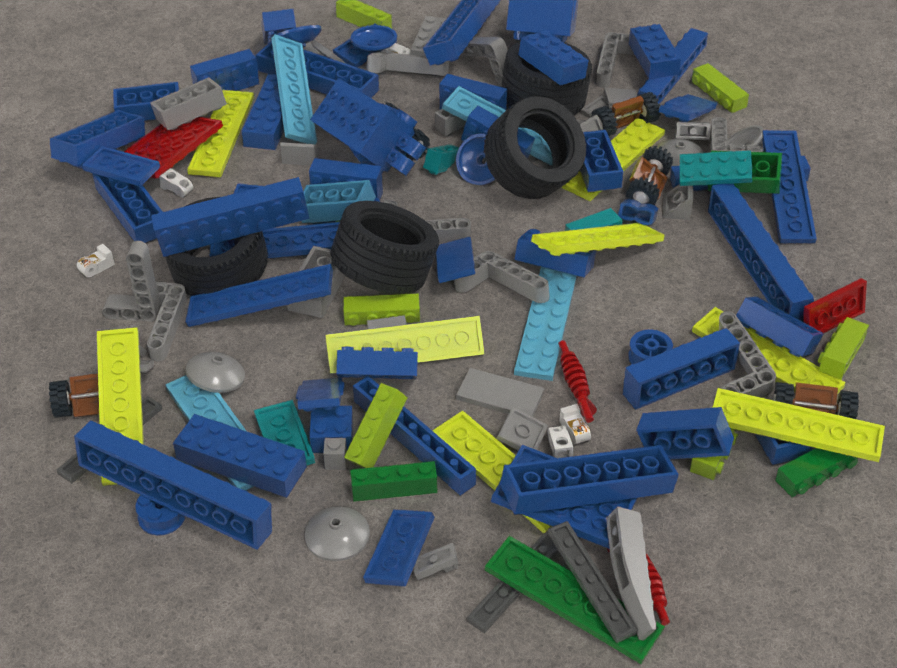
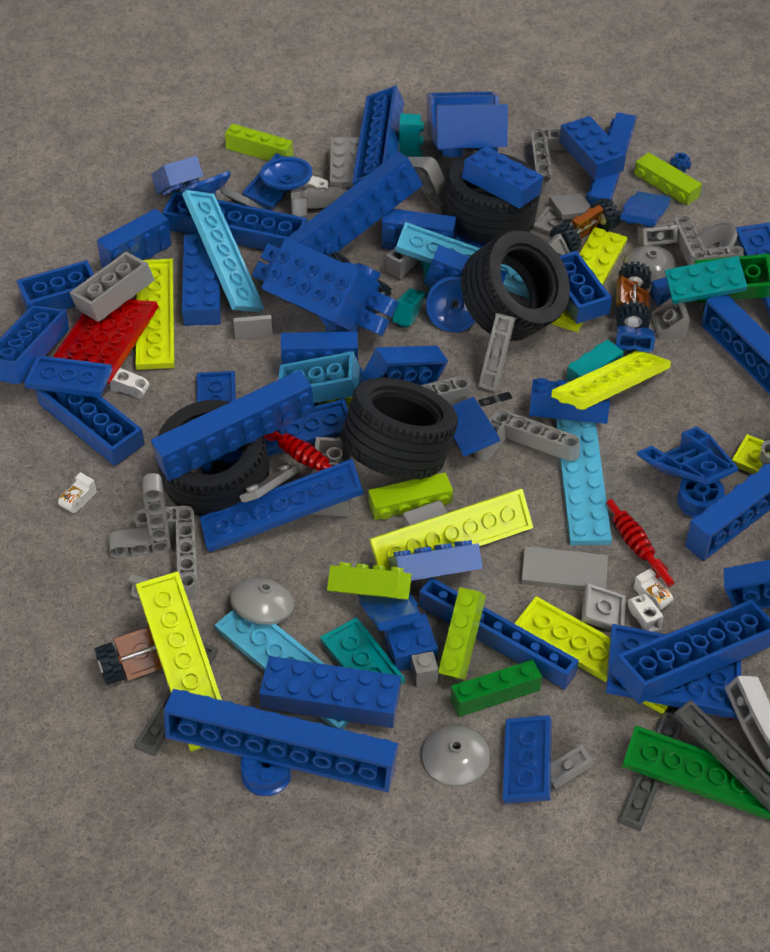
camera: 15 degrees left, 5 degrees up
(238, 279) = (256, 491): none -> light grey plate
(290, 251) = (300, 450): none -> red piece
(310, 368) = (369, 582): none -> lime brick
(422, 68) = (360, 206): none -> blue brick
(422, 199) = (408, 363): none -> blue brick
(490, 244) = (495, 399): none -> black sticker
(493, 19) = (410, 135): none -> teal brick
(501, 201) = (496, 352): none -> light grey plate
(657, 320) = (696, 458): none -> blue wedge
(737, 75) = (681, 162): none -> blue gear

